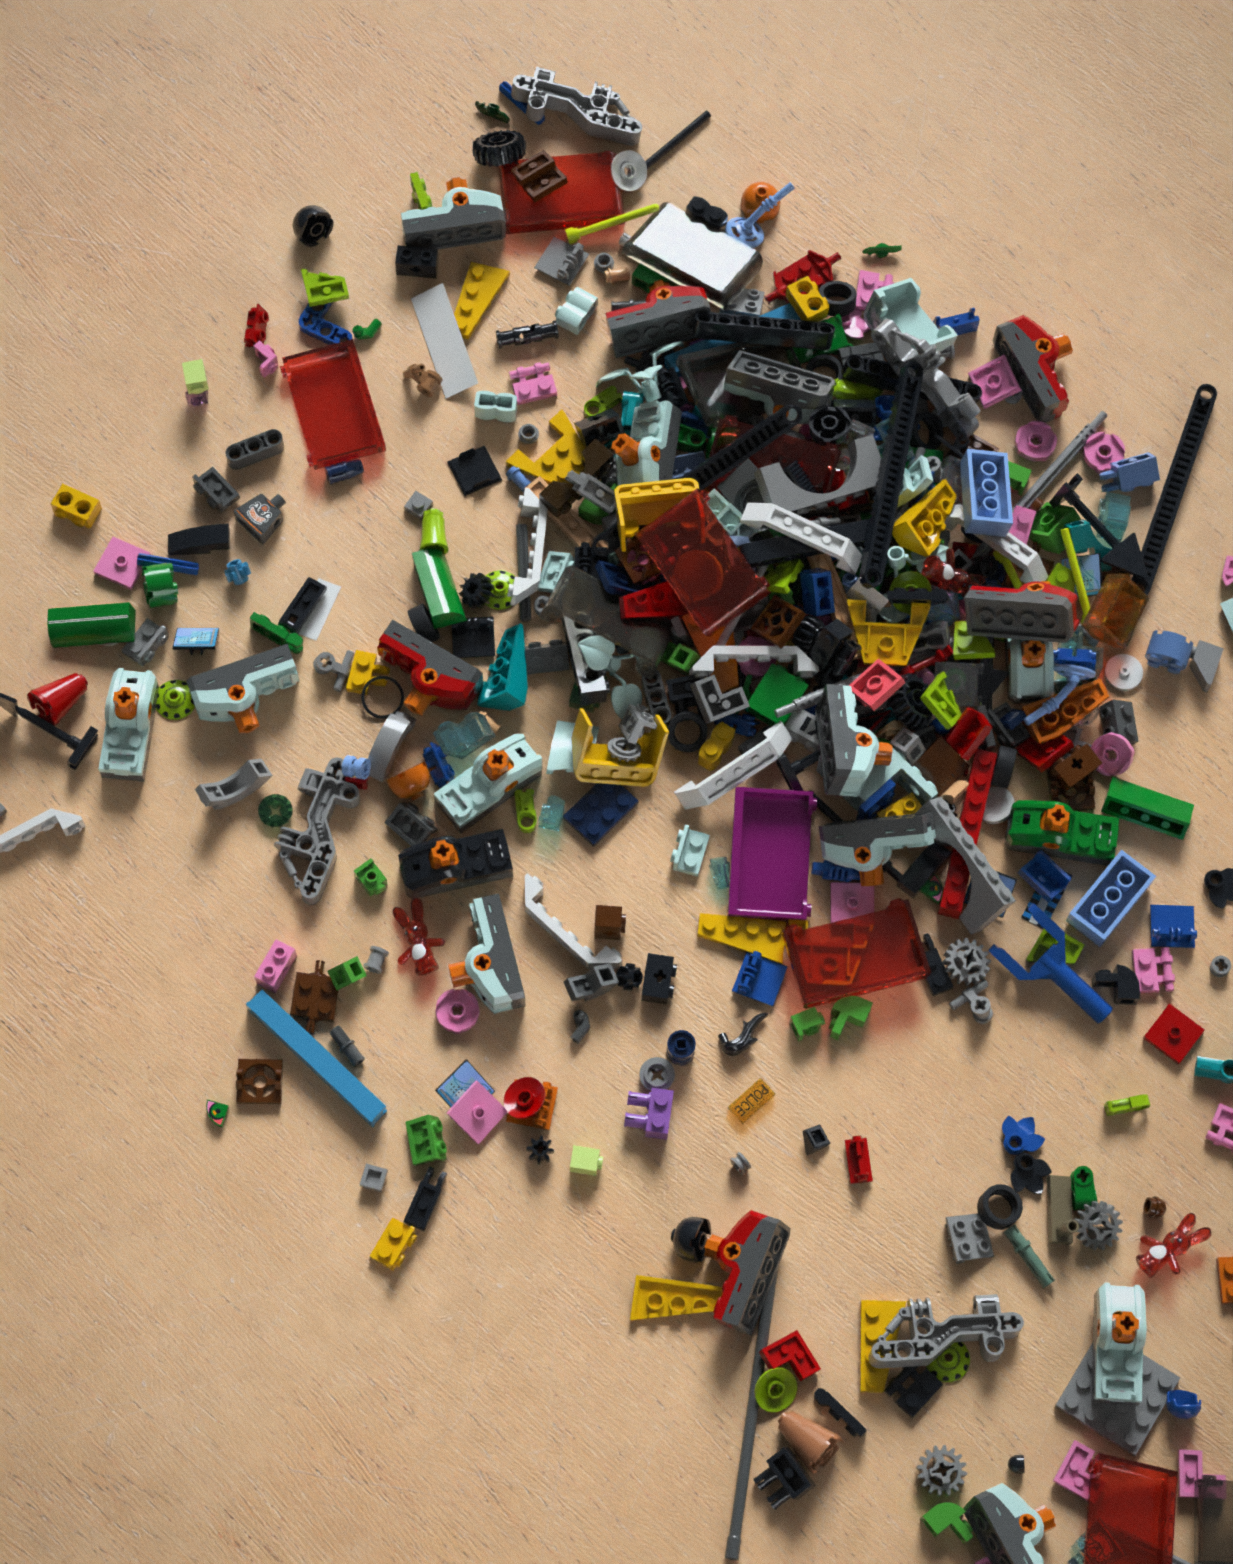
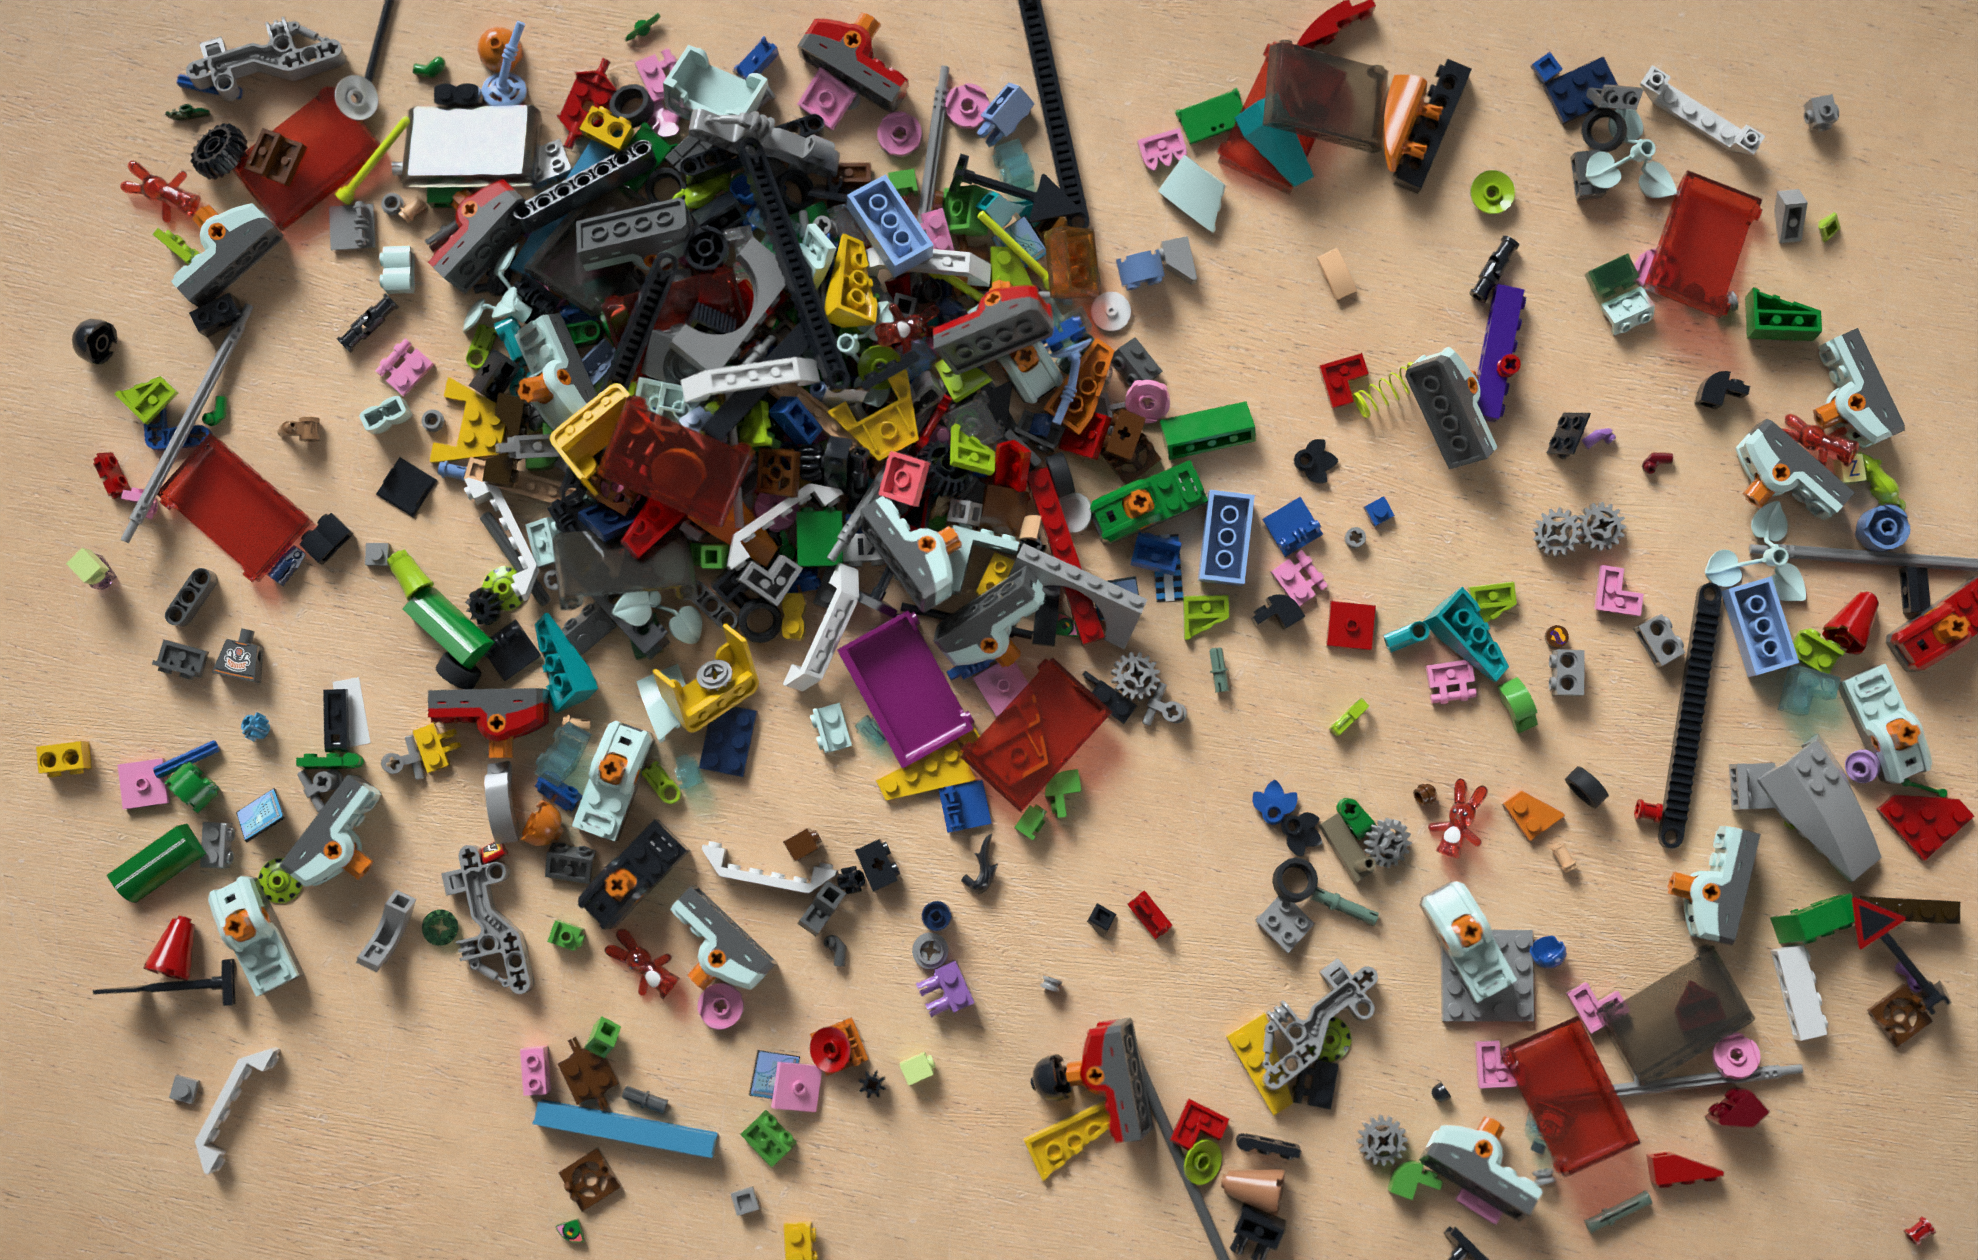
camera: 30 degrees left, 15 degrees up
(199, 540) = (200, 717): black slope -> none
(261, 643) = (322, 782): none -> light grey piece
(339, 323) = (186, 424): none -> light grey axle
(356, 767) = (487, 846): light blue wheel -> none
(376, 678) = (471, 779): black piece -> none
(376, 959) = (619, 1006): light grey bush -> none
(387, 468) = (325, 538): none -> black brick
(424, 1201) = (802, 1192): black hinge -> none
(434, 150) = (157, 189): none -> clear red animal
(444, 340) = (295, 377): white sticker -> none
(476, 295) = (294, 307): yellow wing -> none
(634, 721) = (708, 642): light grey bracket -> none
(699, 186) = (430, 70): none -> green arm
(751, 1101) = (1026, 920): clear yellow tile -> none
(880, 799) = (971, 573): blue plate -> none
(1040, 1000) = (1219, 670): none -> sand green axle
(1054, 967) = (1212, 634): blue piece -> none

